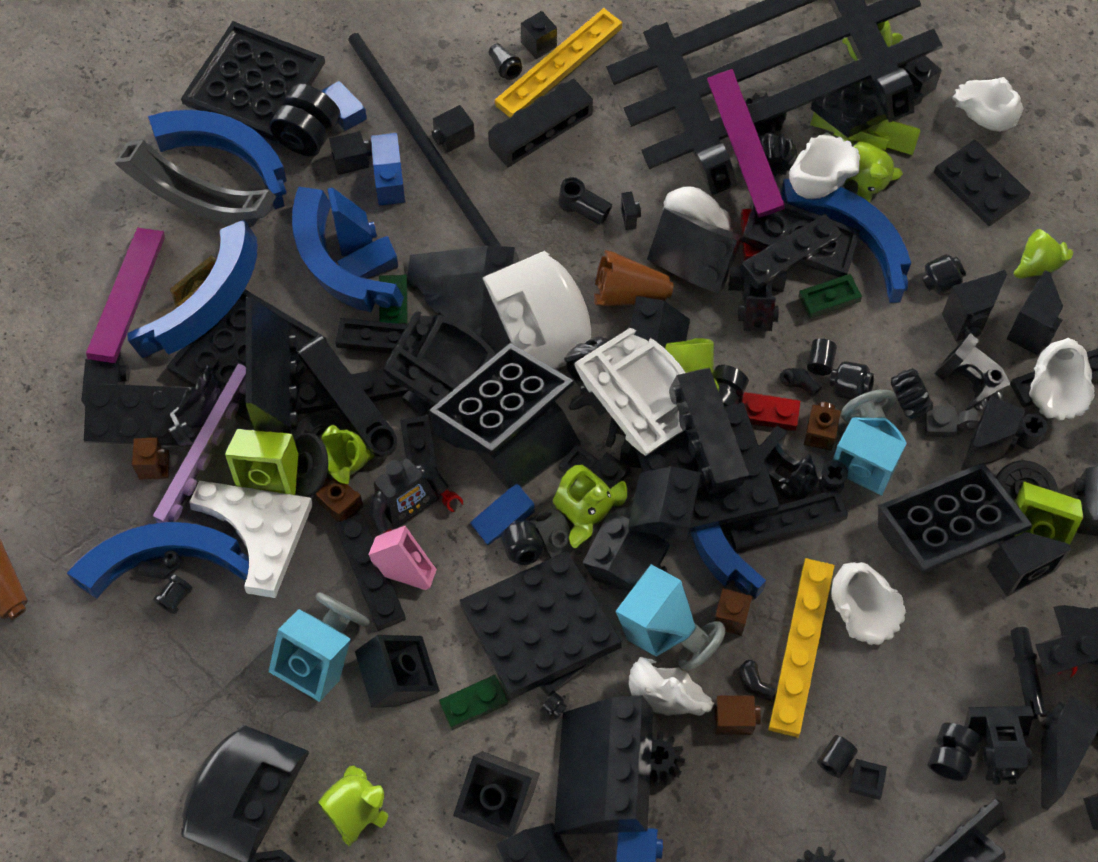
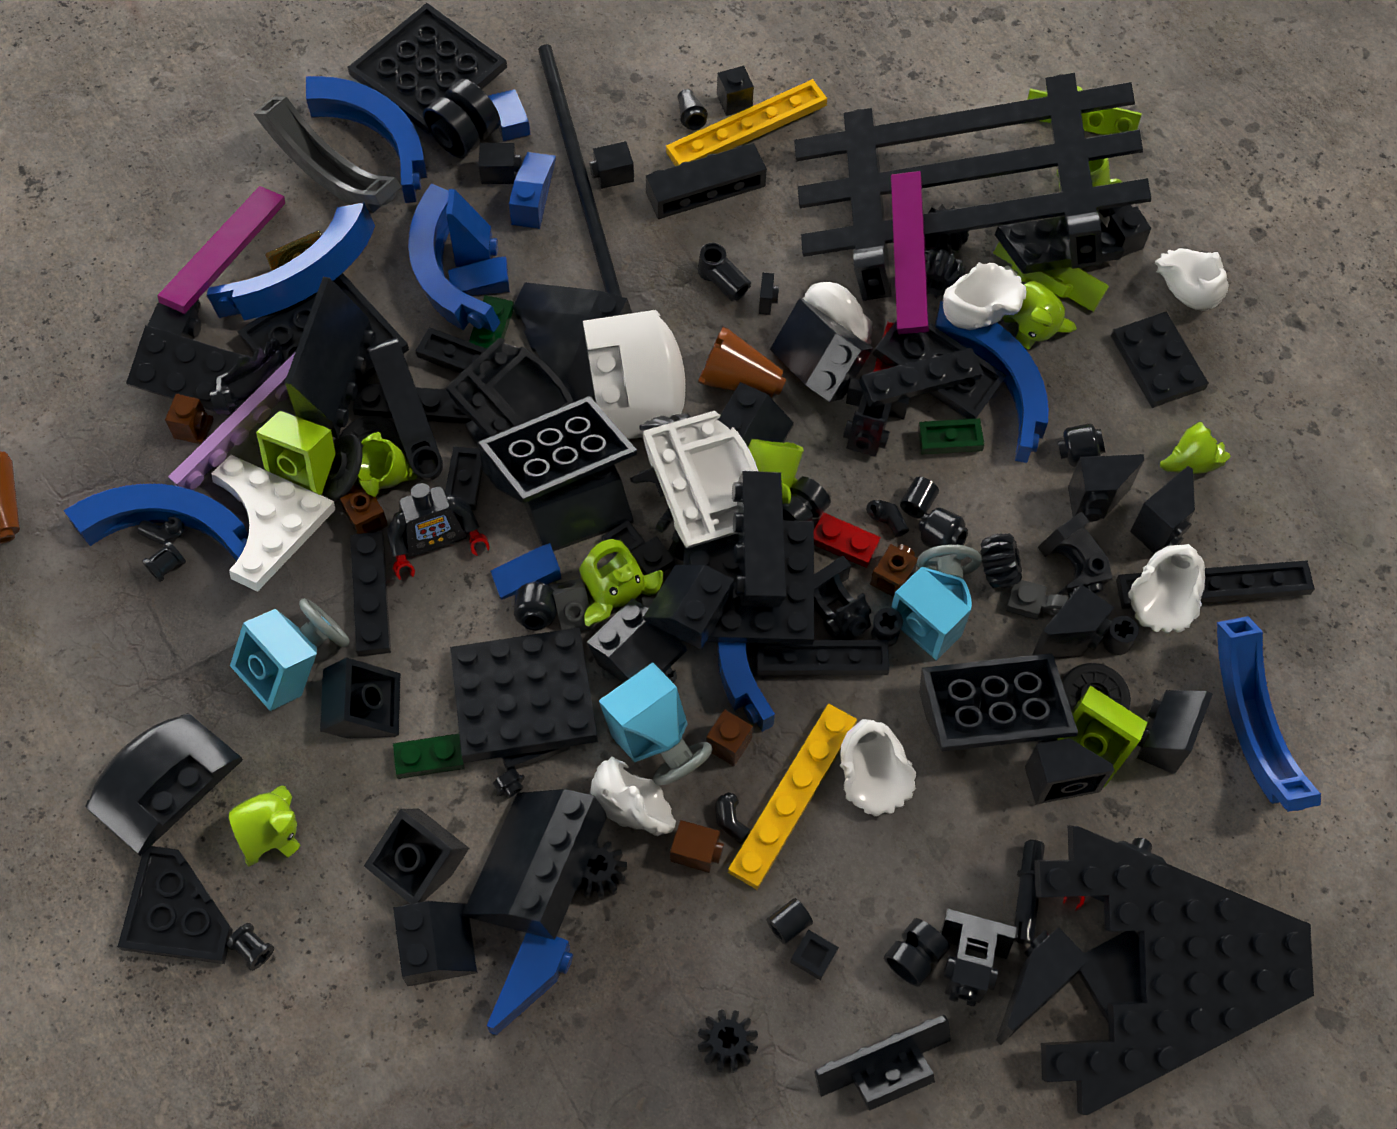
camera: 15 degrees right, 0 degrees up
(402, 558) = (404, 588): bright pink slope -> none

